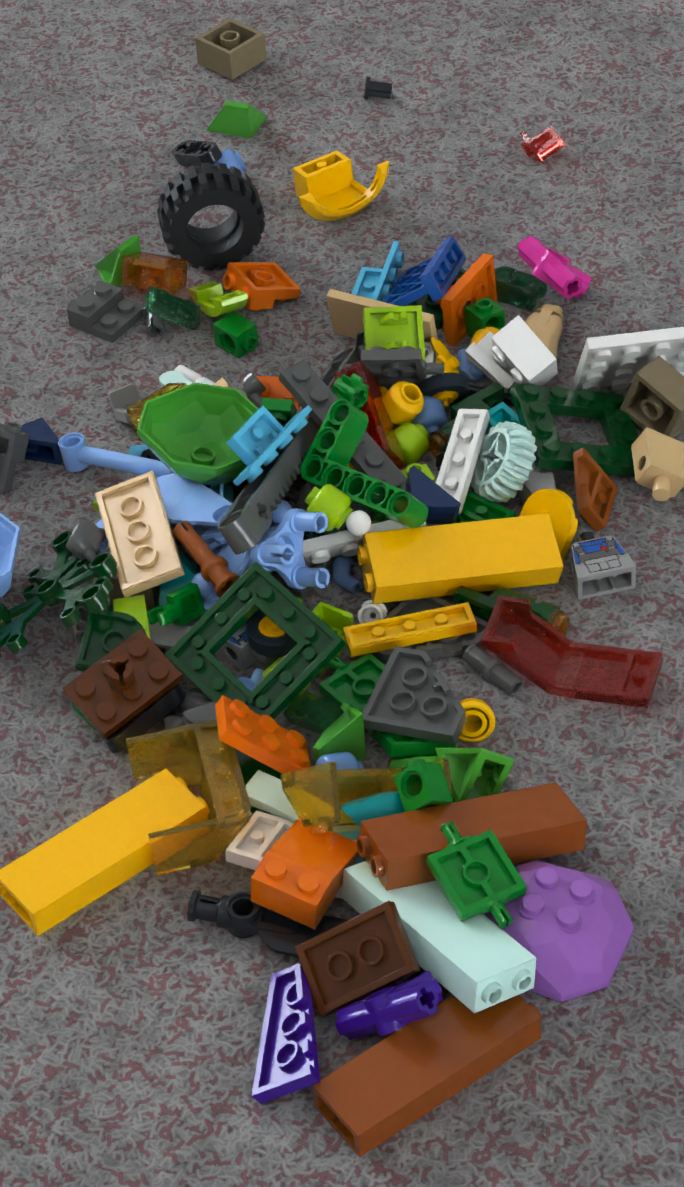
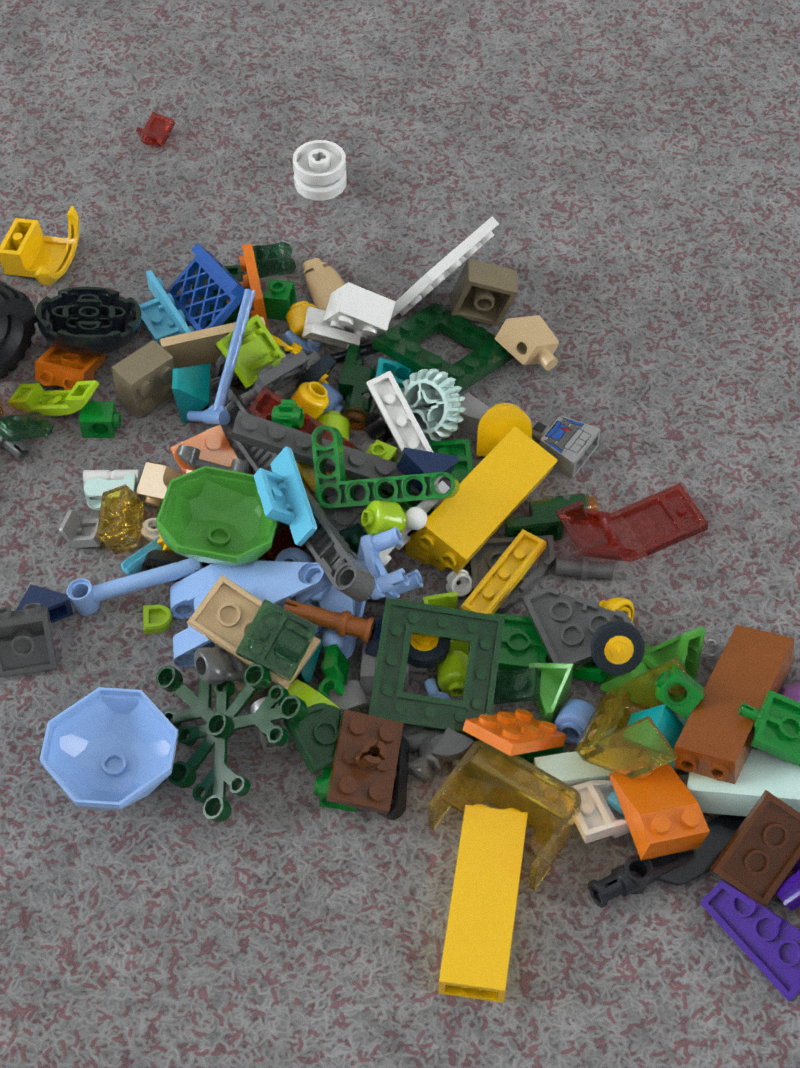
camera: 45 degrees left, 10 degrees up
(142, 544) = (277, 640): none -> clear green plate
(281, 409) = (251, 463): green plate -> none
(299, 320) = (144, 379): none -> dark tan brick
(306, 255) = (88, 320): none -> black brick
(322, 341) = (191, 388): none -> teal slope
(342, 575) = (399, 562): medium blue arm -> none
(366, 324) = (218, 413): none -> medium blue bar
(417, 726) = (617, 647): none -> black wheel
(553, 268) = (288, 229): dark pink piece -> none
(593, 490) = (503, 386): dark orange wing -> none
(643, 238) = (319, 170): none -> white wheel

